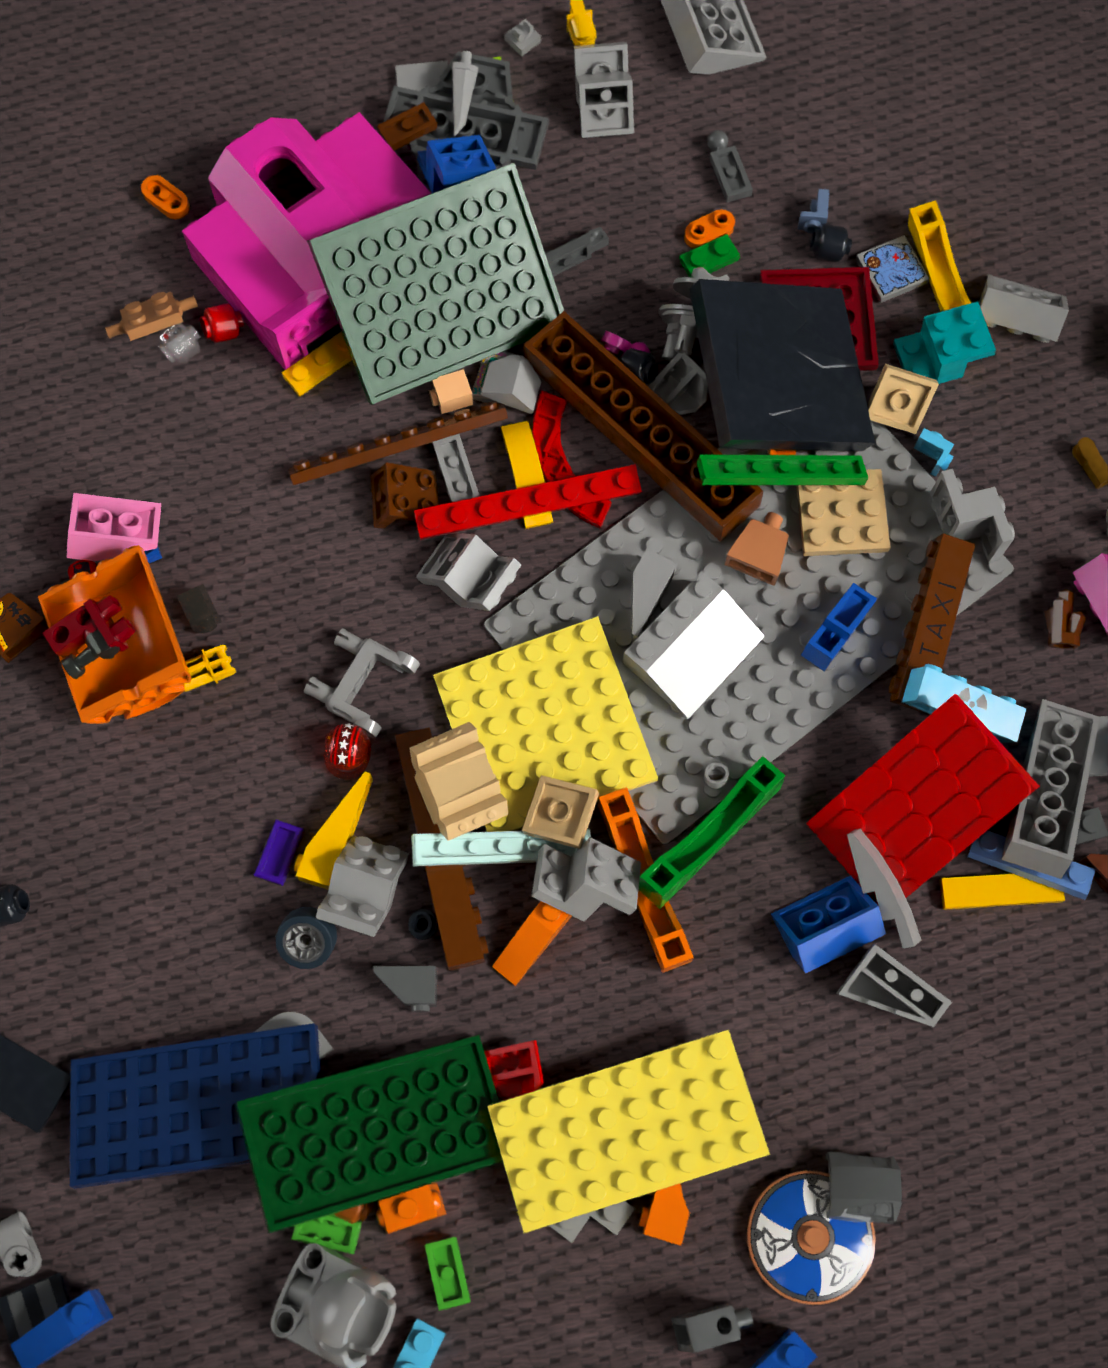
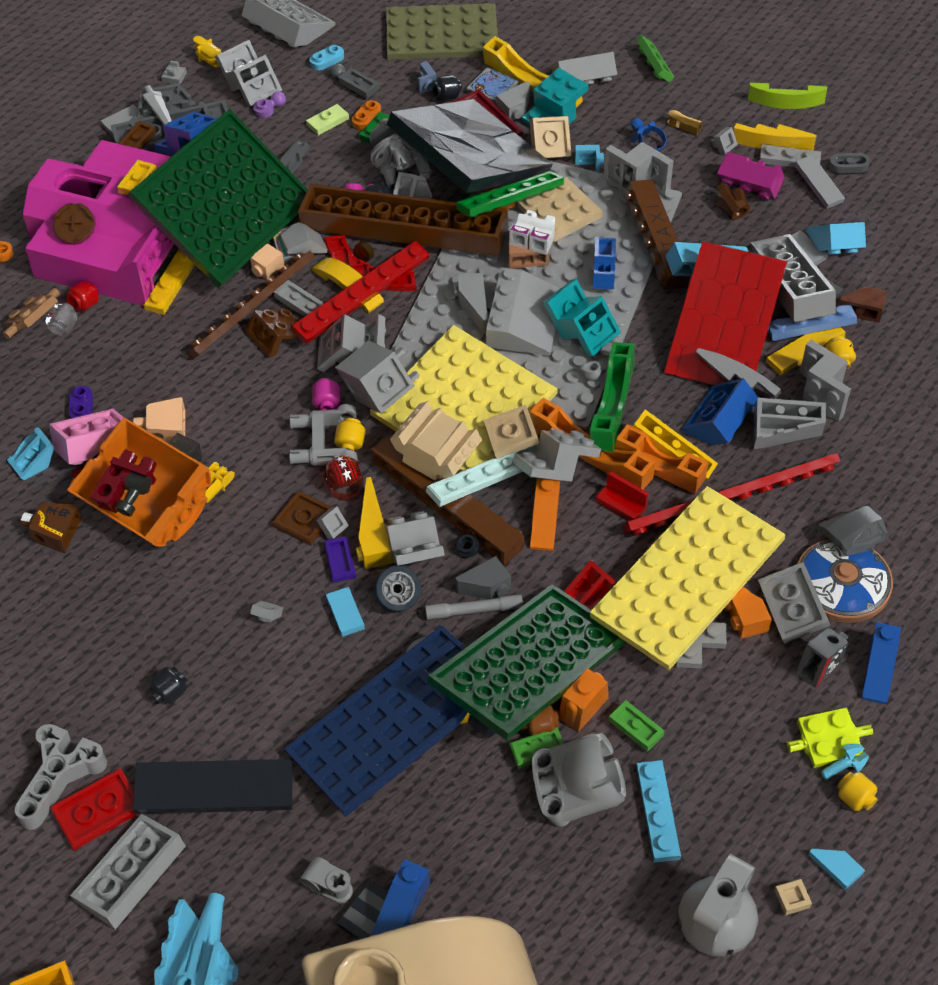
camera: 30 degrees left, 20 degrees down
(42, 514) = (32, 455): none -> medium azure slope
(137, 473) = (81, 400): none -> dark purple plate
(159, 874) = (266, 611): none -> light grey plate
(205, 554) = (164, 419): none -> light nougat torso
(241, 924) = (345, 611): none -> medium azure tile
(248, 230) = (74, 223): none -> reddish brown tile
(276, 774) = (301, 517): none -> reddish brown tile
(296, 804) = (332, 522): none -> light grey plate
(346, 209) = (136, 175): none -> yellow plate
(347, 993) = (446, 610): none -> light grey piece
(389, 696) = (349, 434): none -> yellow head
(398, 624) = (326, 394): none -> dark pink head
(455, 644) = (376, 376): none -> light grey container
(572, 439) = (364, 251): none -> dark brown tile
(617, 146) = (264, 107): none -> medium lavender plate
(633, 971) = (623, 497): none -> red panel
(659, 209) = (327, 119): none -> yellowish green plate
(709, 950) = (683, 471): none -> orange arch
(720, 110) = (327, 57): none -> medium azure plate
(726, 1235) = (794, 602): none -> light grey plate
(737, 936) = (670, 441): none -> yellow slope
(751, 698) = (582, 317): none -> teal bracket
(771, 544) = (533, 232): none -> white hips
(773, 1047) = (741, 491): none -> red plate
(887, 142) = (439, 30): none -> olive plate
(900, 311) = (514, 101): none -> light grey slope
(979, 962) = (824, 379): none -> light grey bracket
(1026, 438) = (638, 127): none -> blue piece
(1033, 929) = (843, 348): none -> yellow head

